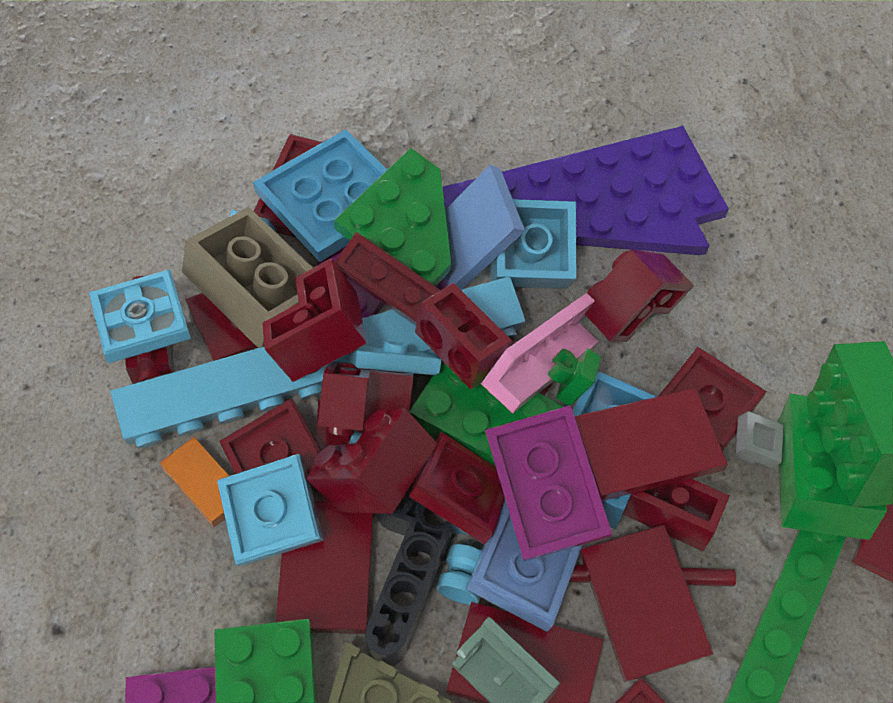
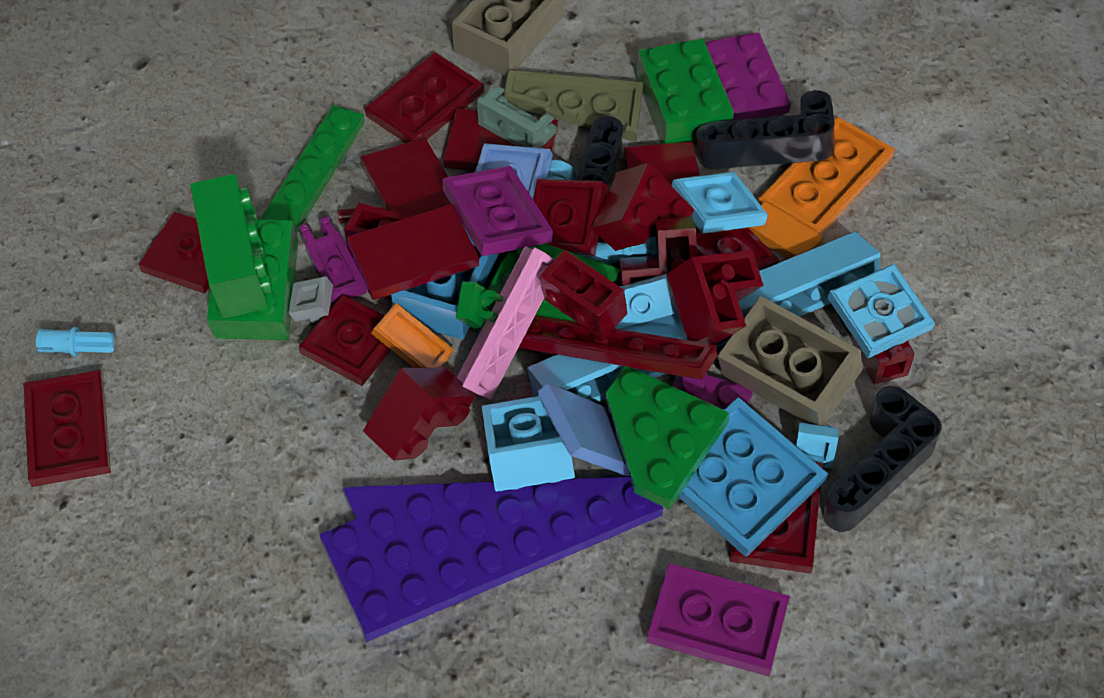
camera: 175 degrees right, 5 degrees down
(119, 561) = (821, 190): none -> orange tile
(178, 607) = (771, 139): none -> black beam
(189, 203) = (898, 441): none -> black beam
(382, 103) = (718, 619): none -> magenta plate
(646, 375) = (412, 339): none -> orange tile
(744, 511) = (332, 259): none -> magenta hinge

